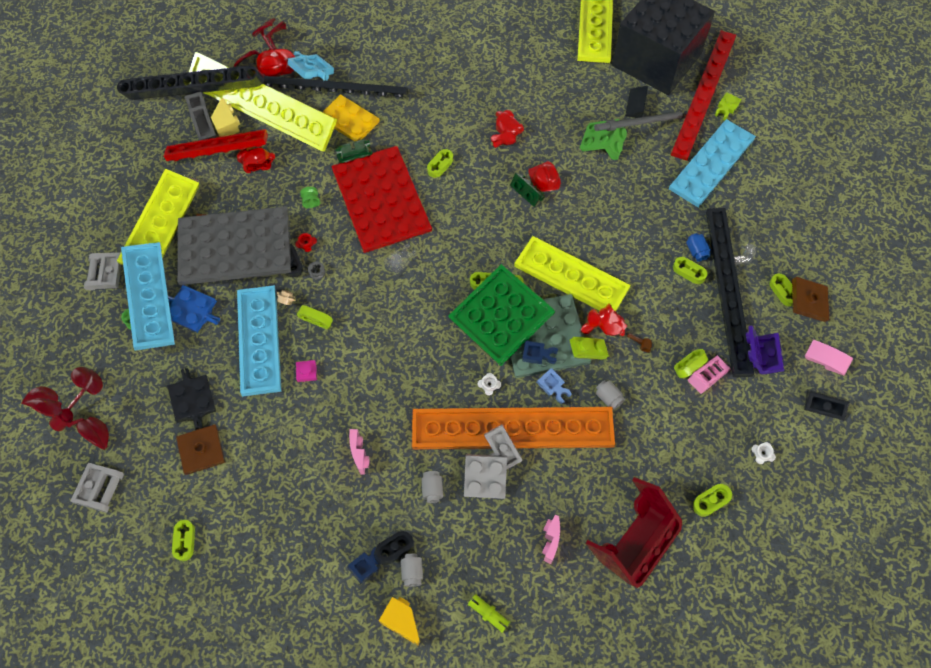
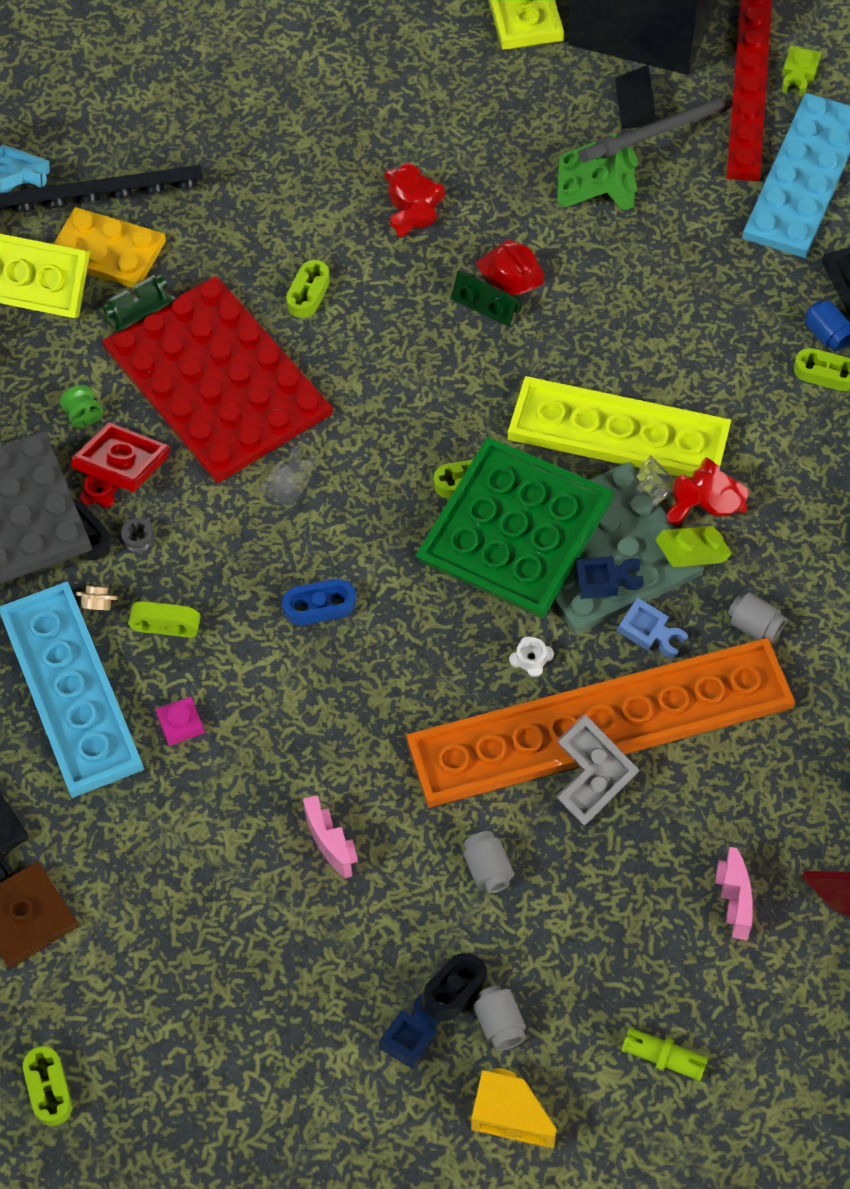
camera: 15 degrees left, 5 degrees down
(320, 228) = (120, 457): none -> red tile
(393, 327) = (319, 599): none -> blue plate
(485, 476) = (580, 817): light grey plate -> none
(580, 308) = (654, 480): none -> clear plate
(646, 343) = (790, 514): reddish brown hand -> none

